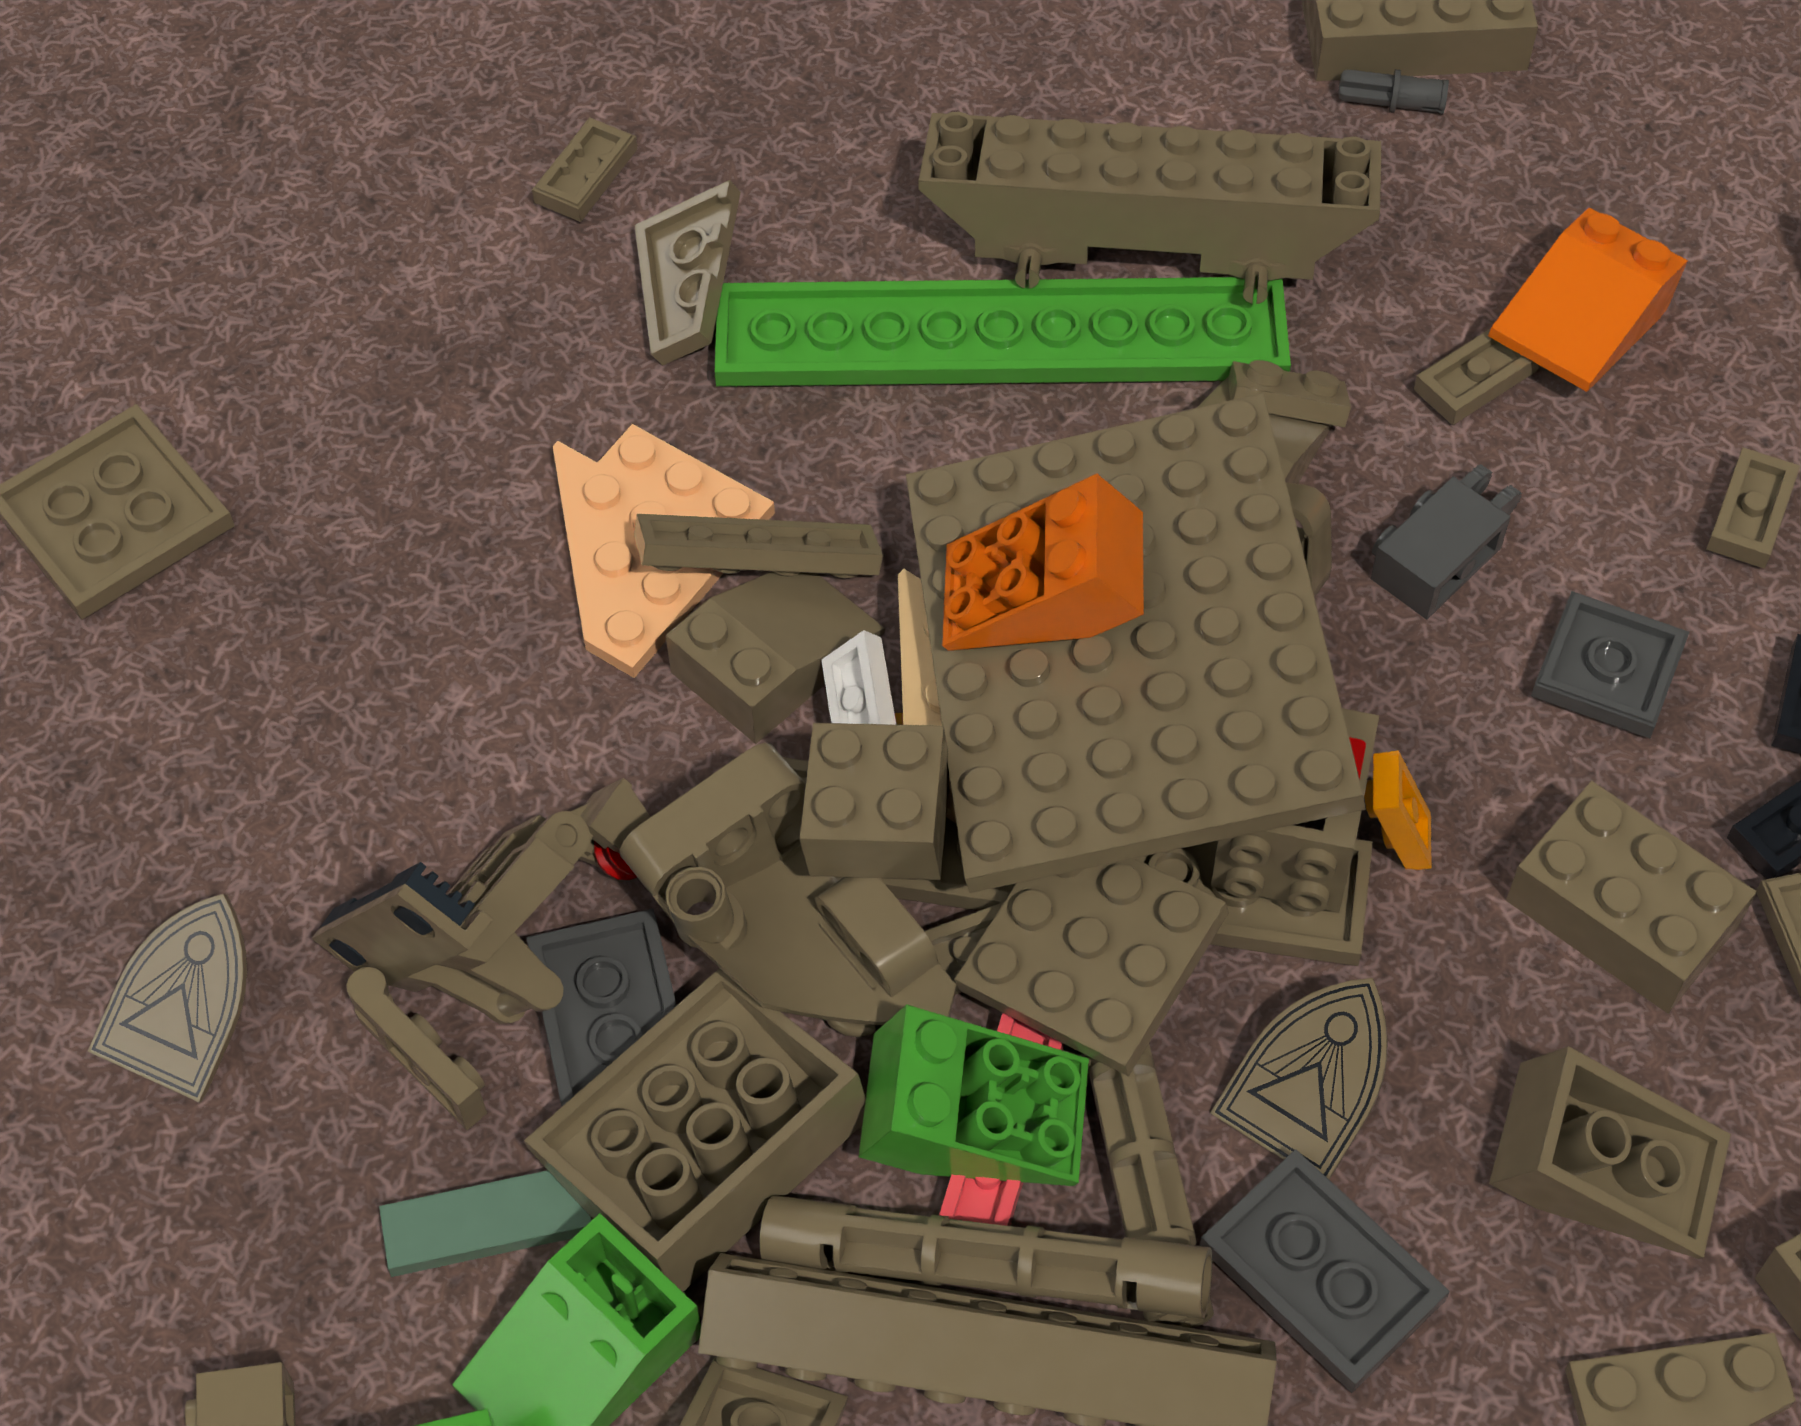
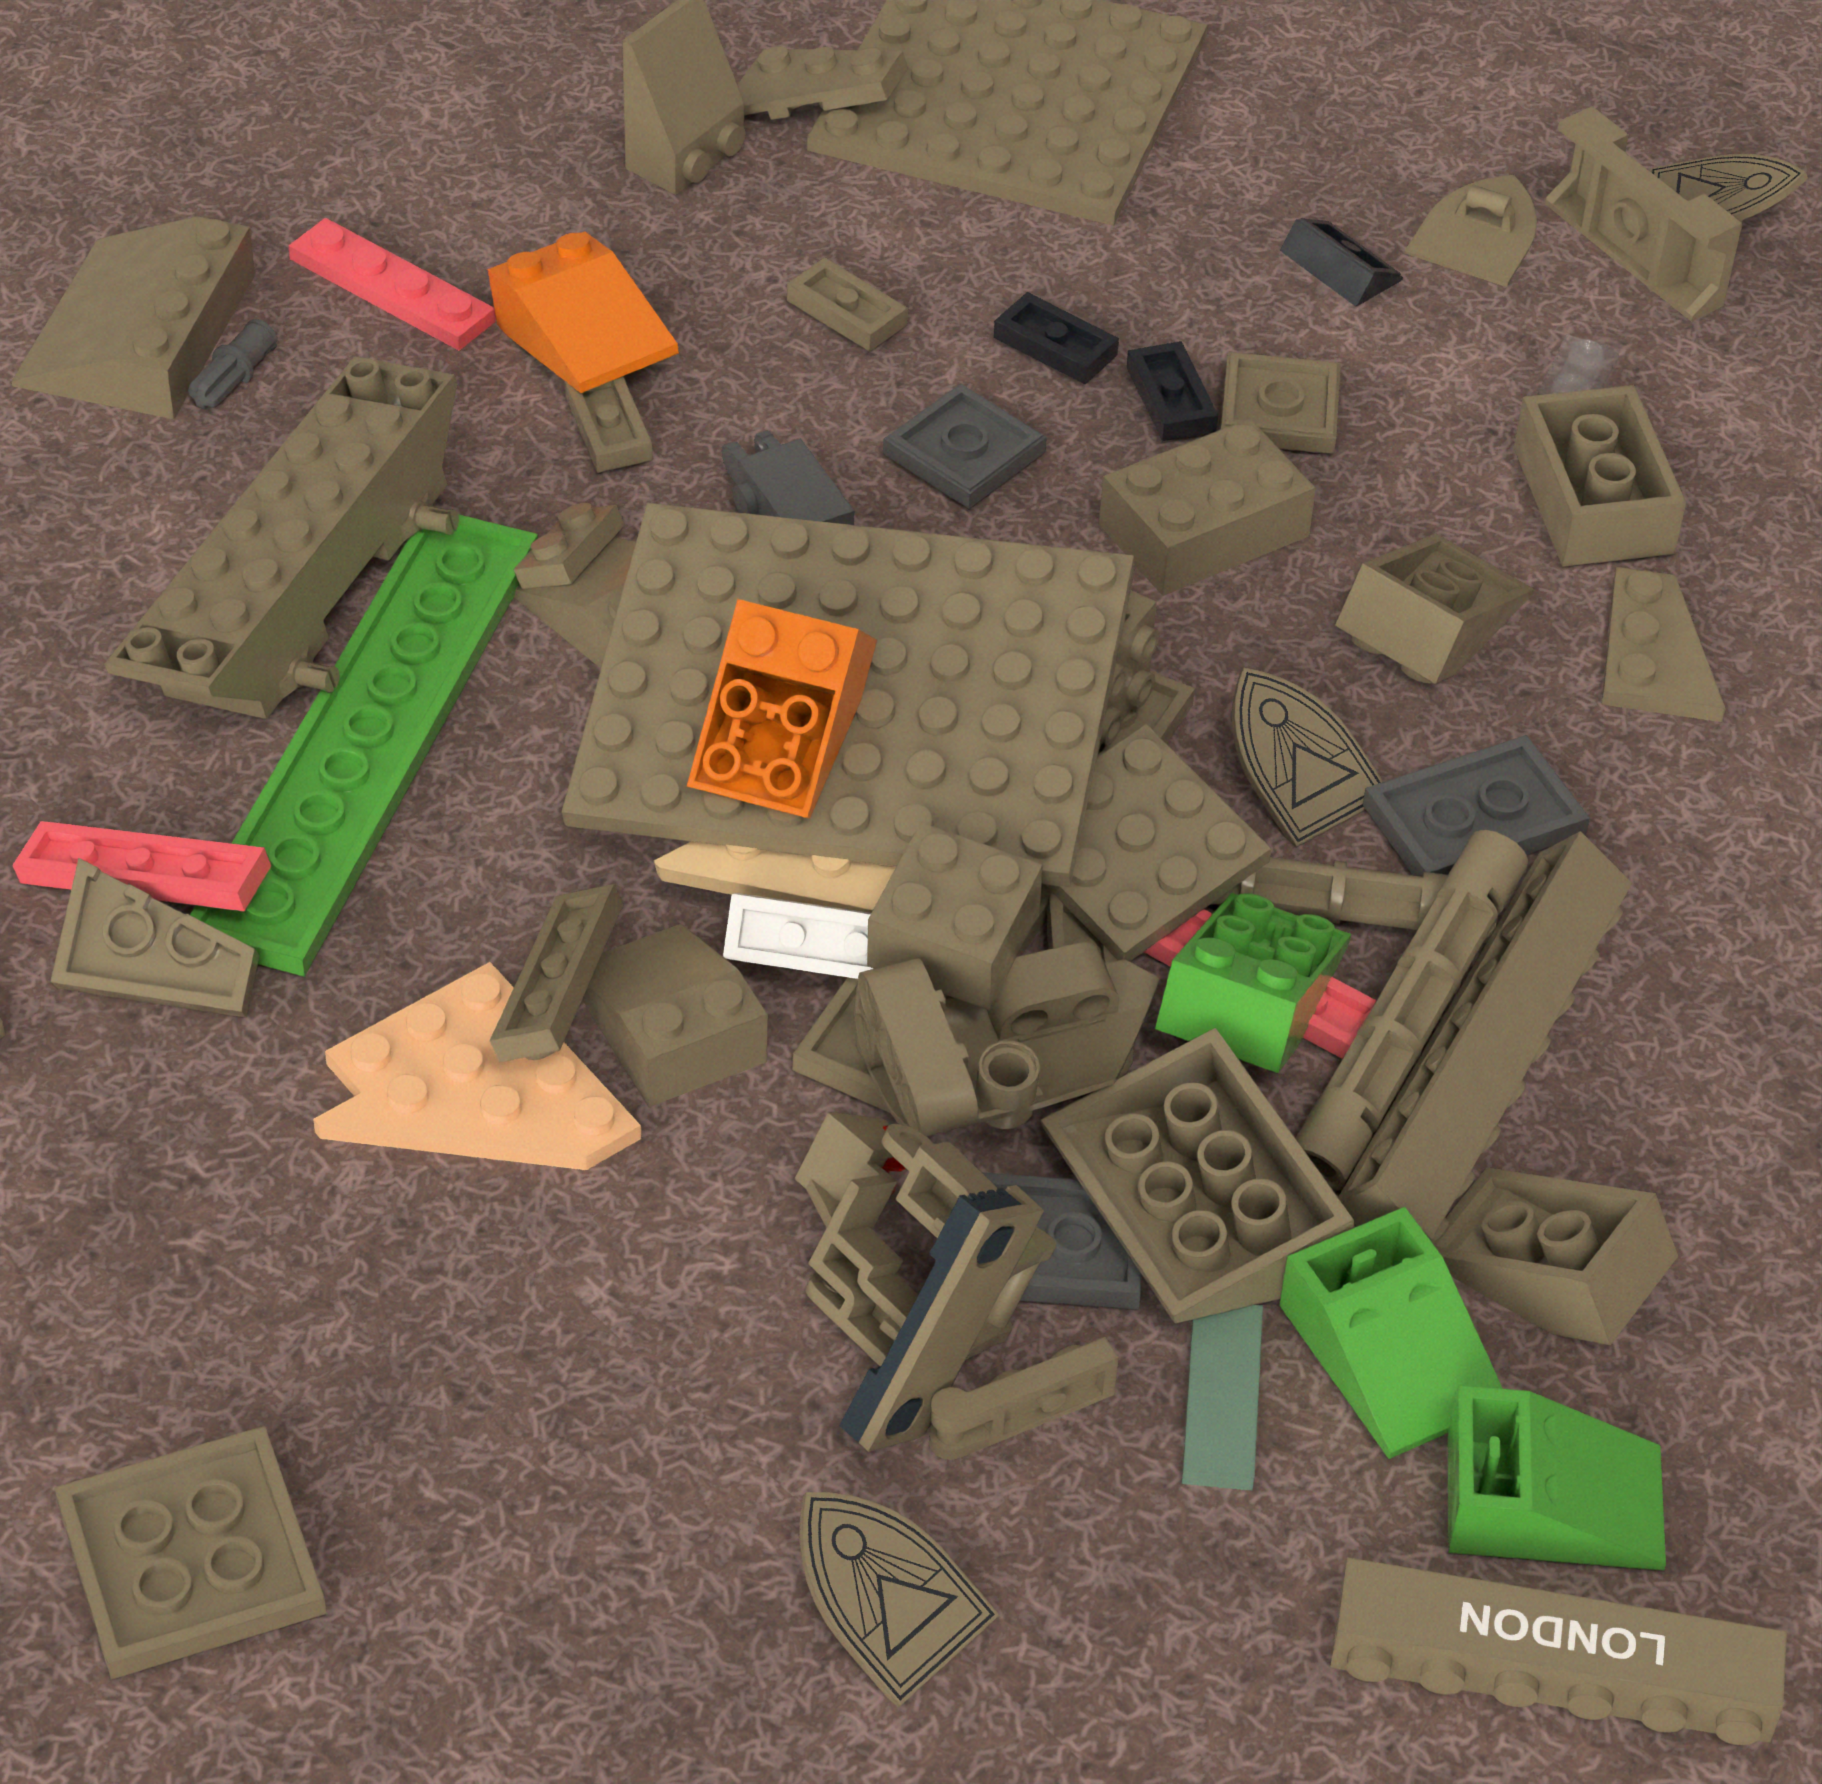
camera: 75 degrees left, 10 degrees down
(764, 233) = (157, 864): none -> coral plate
(1569, 159) = (392, 284): none -> coral plate

